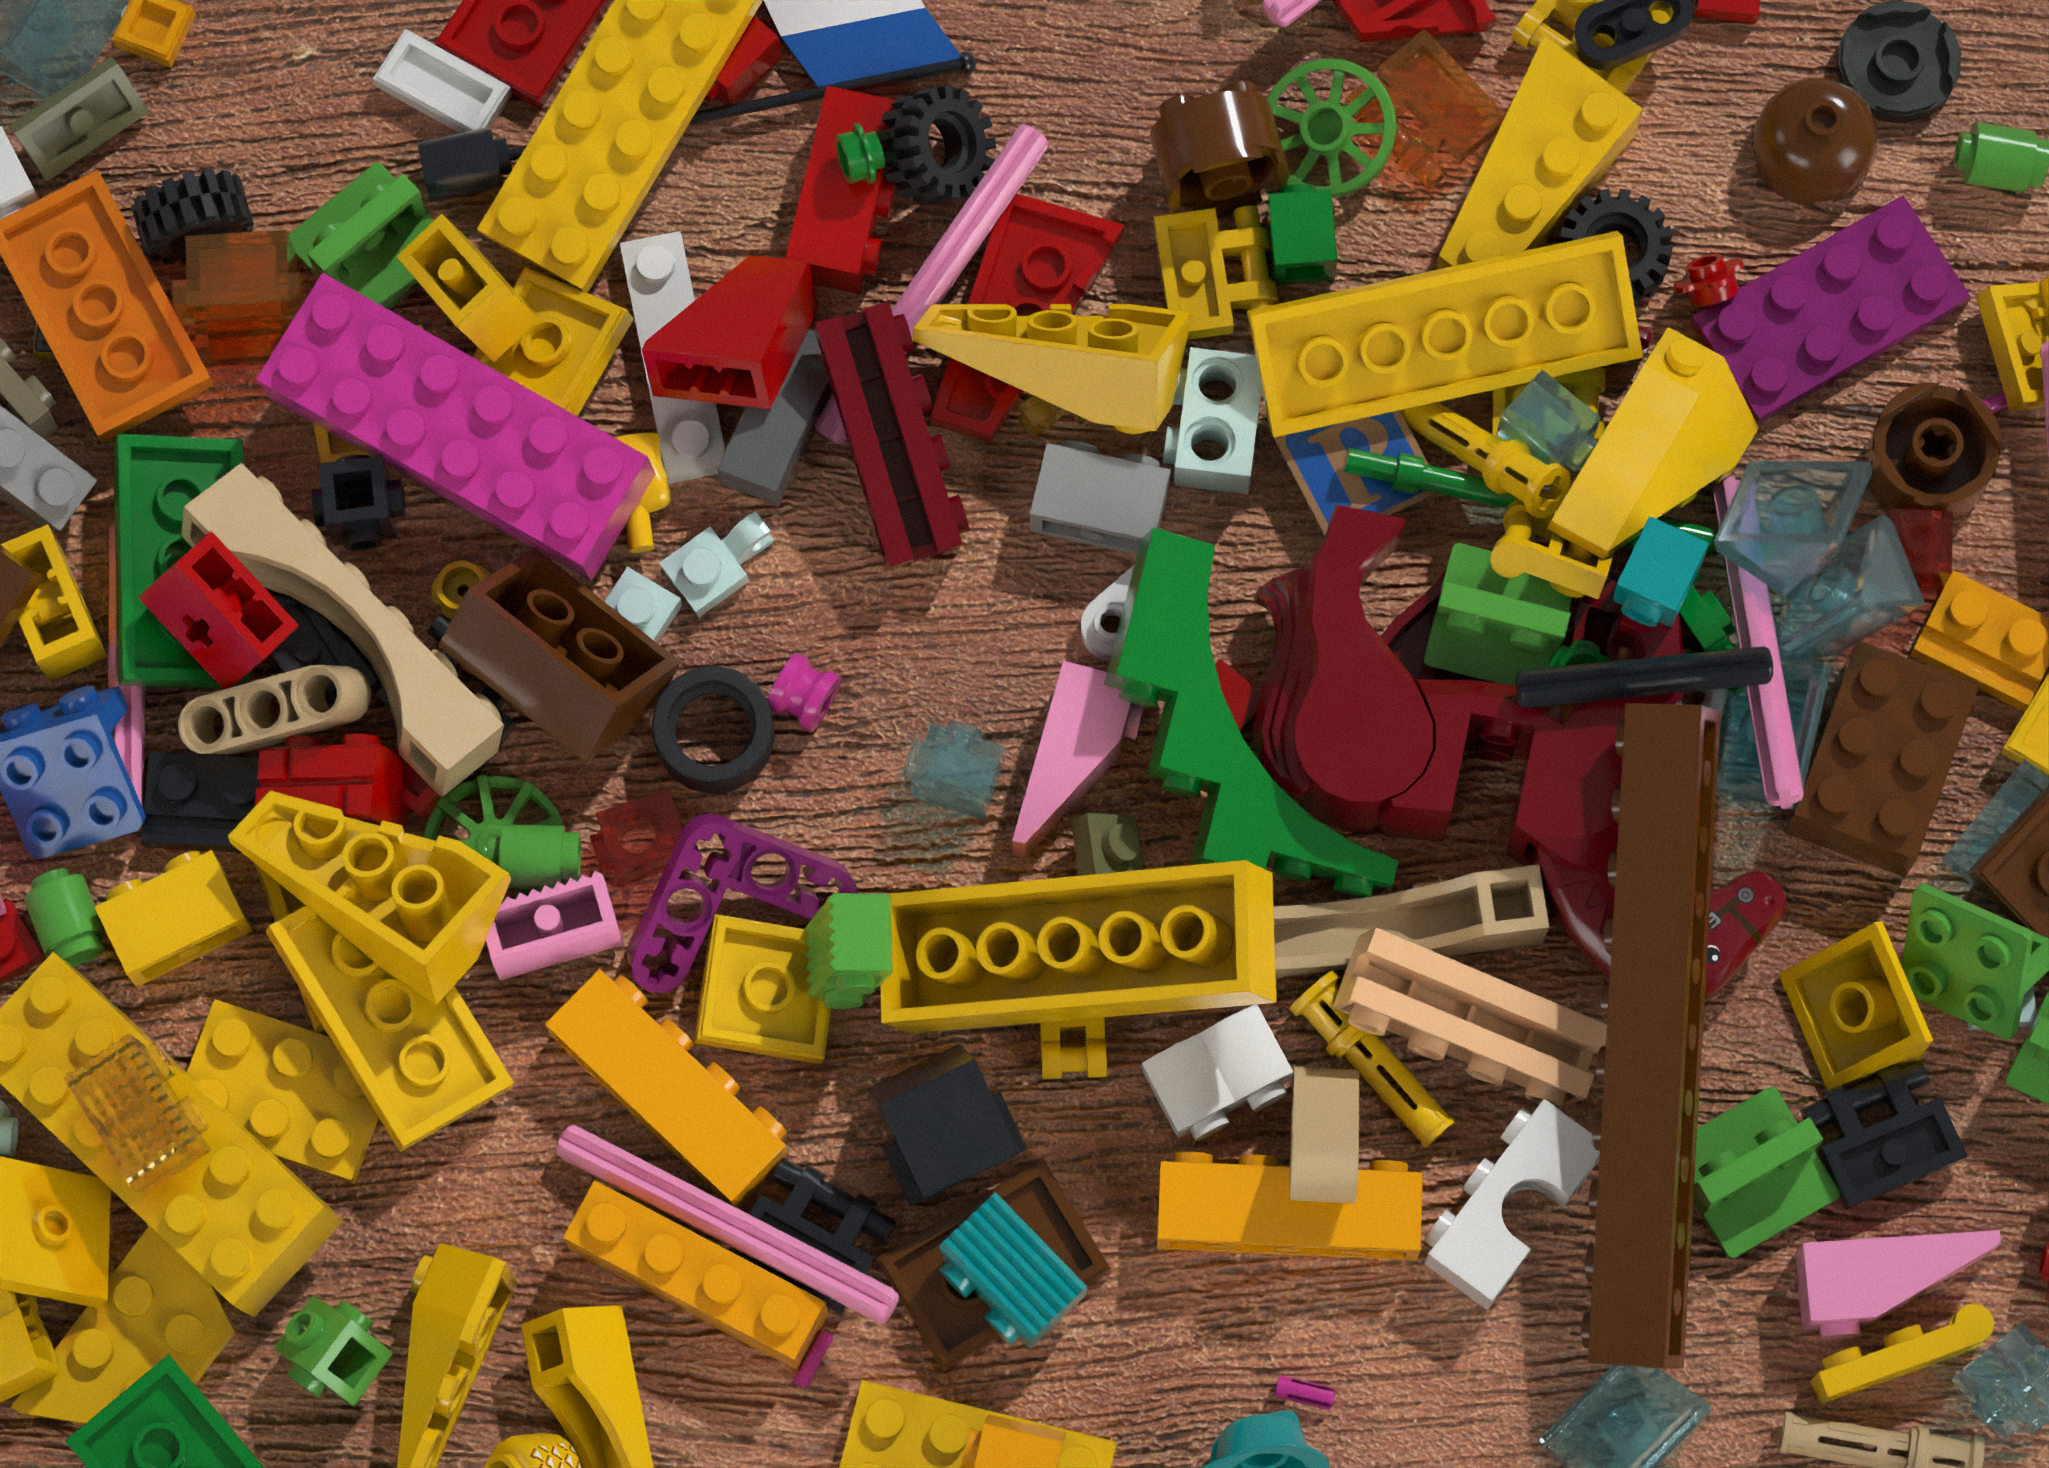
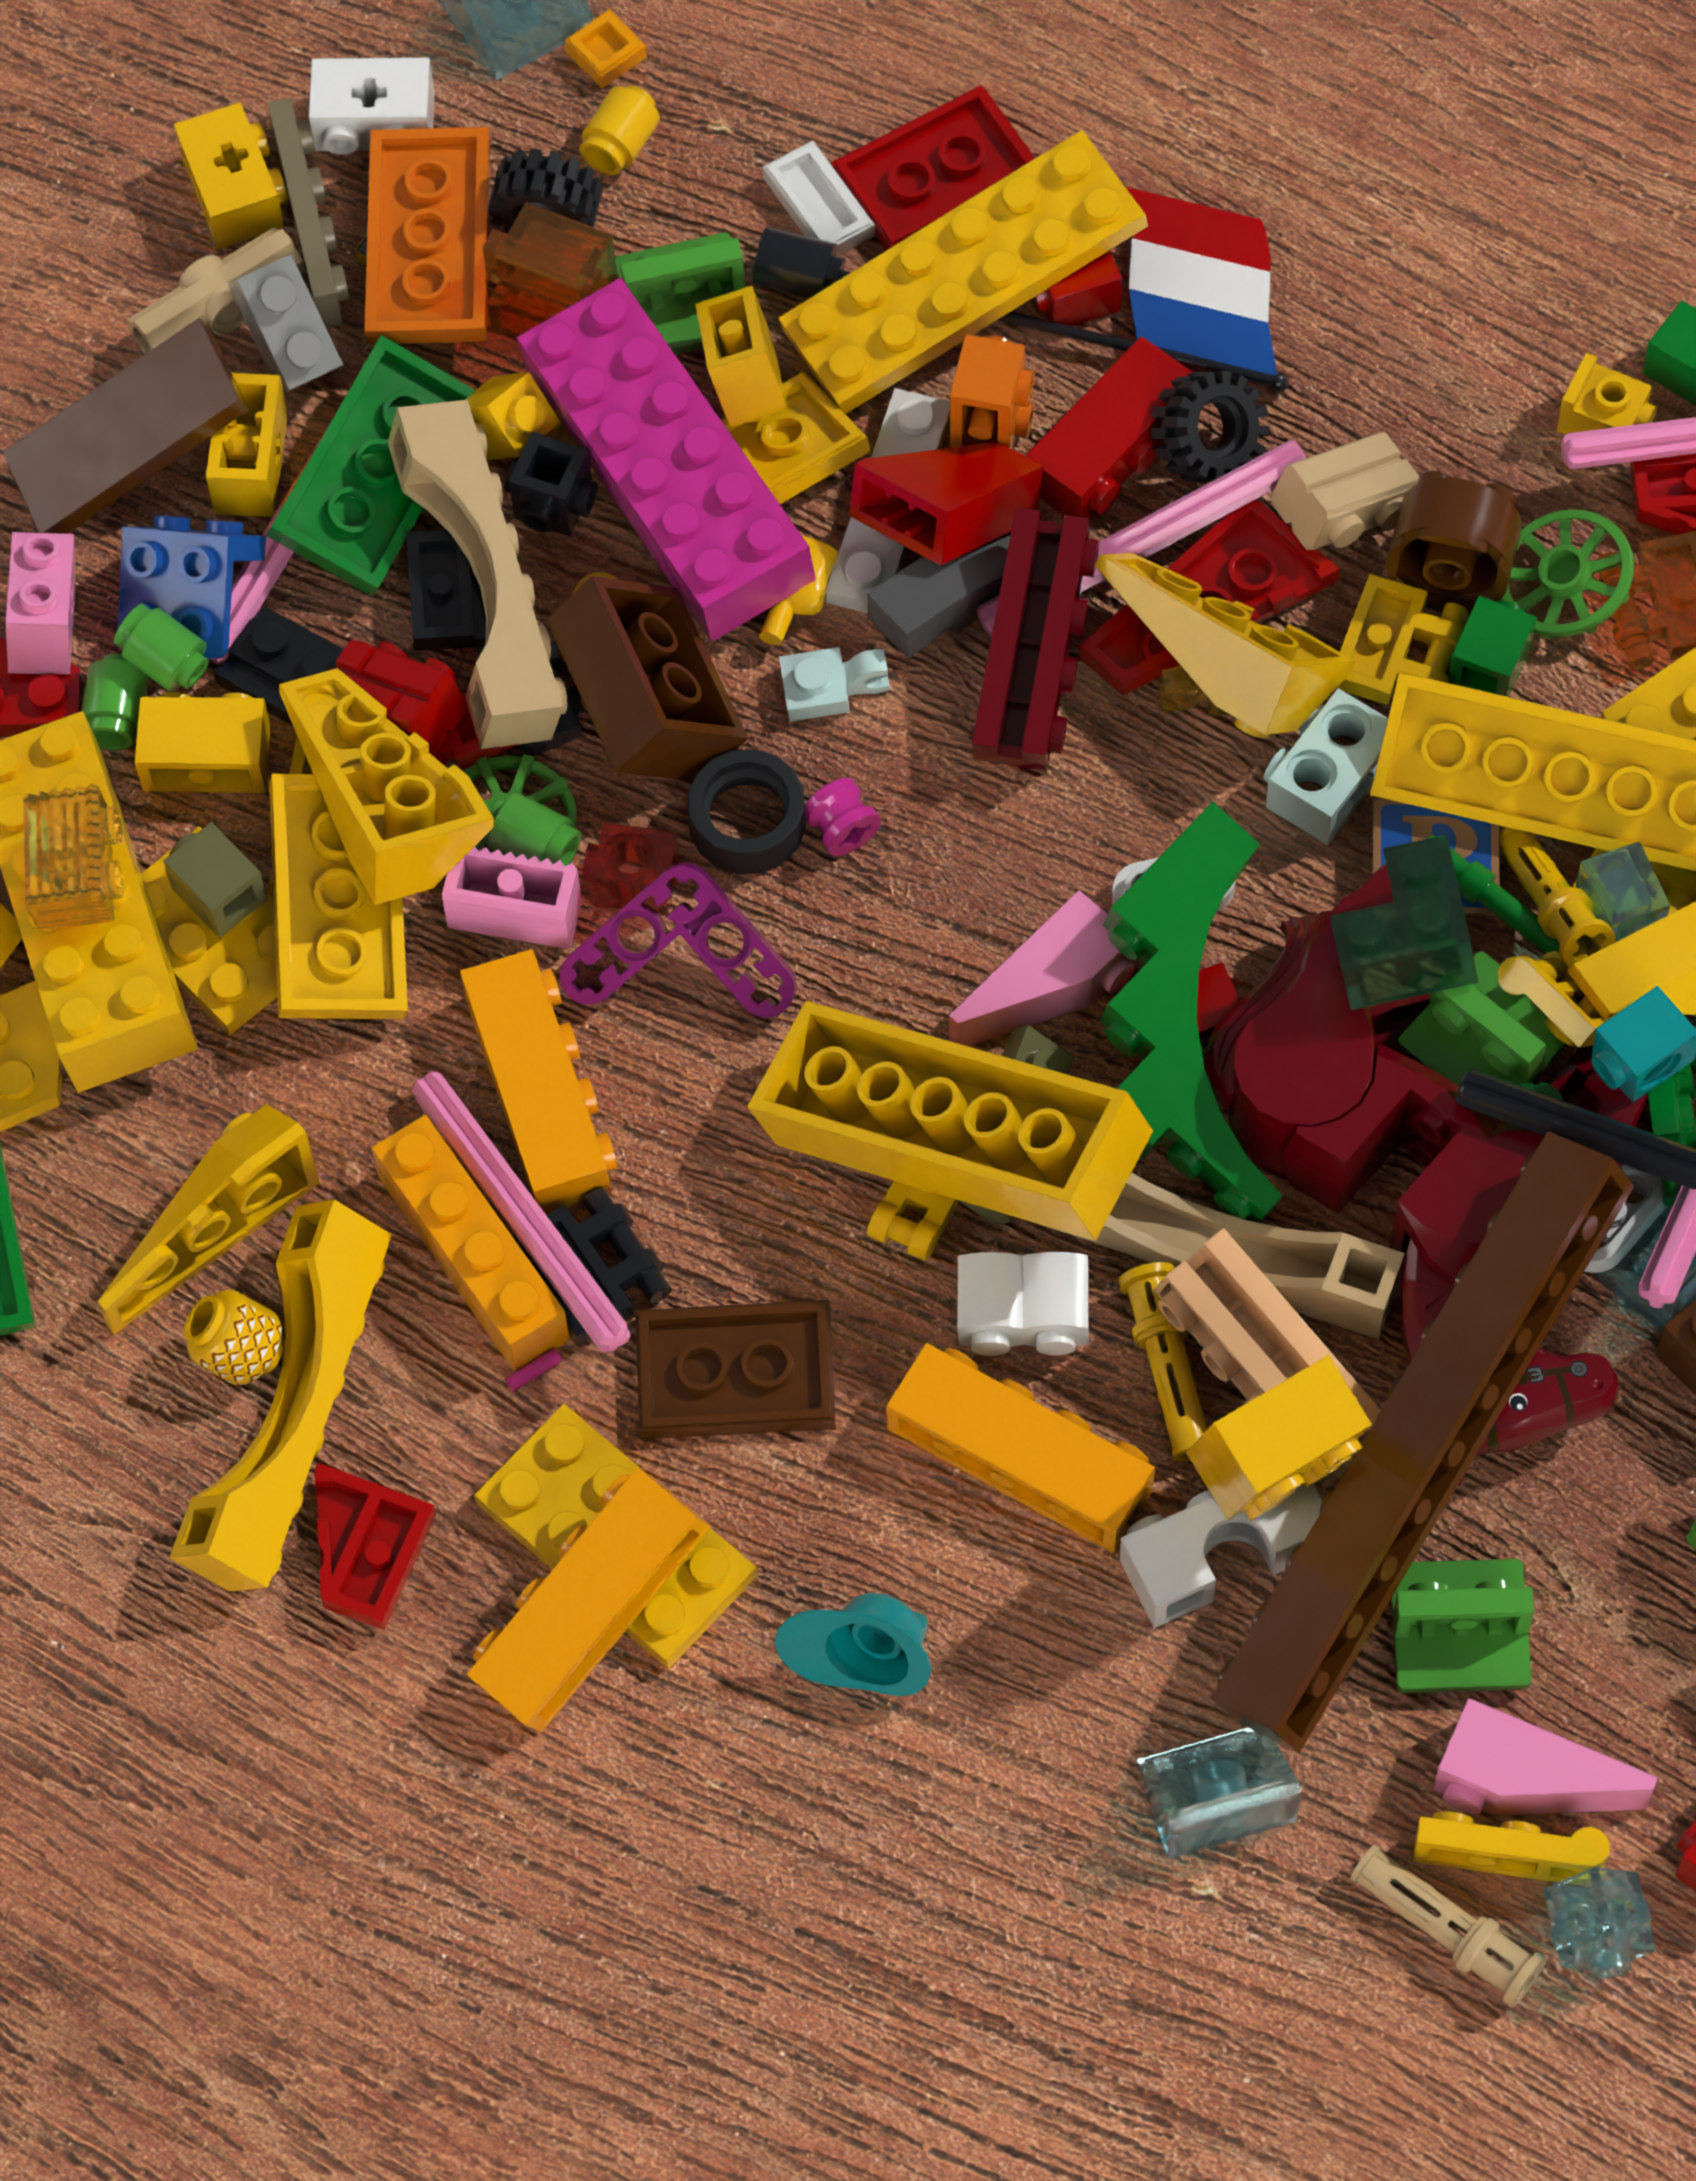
camera: 30 degrees right, 10 degrees down
(78, 119) = (499, 87): olive plate -> none
(89, 849) = (162, 648): none -> bright green brick
(217, 107) = (619, 129): none -> yellow brick
(218, 611) = (378, 506): red brick -> none
(248, 716) = (379, 608): tan beam -> none
(267, 1050) = (214, 879): none -> olive brick
(281, 449) = (509, 412): none -> yellow brick
(332, 1350) = (126, 1148): bright green brick -> none
(644, 603) = (748, 685): light aqua plate -> none
(722, 215) = (991, 393): none -> orange brick
(757, 992) = (669, 1043): yellow plate -> none
(849, 949) = (752, 1028): bright green brick -> none
(859, 154) = (1135, 397): green plate -> none
(943, 1124) = (755, 1227): black plate -> none
(955, 768) = (937, 941): clear light blue brick -> none
(1010, 1272) = (742, 1371): teal brick -> none
(1093, 148) = (1344, 492): none -> tan brick
(1098, 496) = (1180, 771): light grey brick -> none
(1305, 1392) = (948, 1612): dark pink piece -> none
(1324, 1135) = (1083, 1389): tan beam -> none
(1417, 570) = (1415, 941): none -> clear green brick
(1542, 1109) = (1280, 1441): none -> yellow brick
(1856, 1008) = (1633, 1530): yellow slope -> none
(1890, 1152) = (1600, 1669): black plate -> none

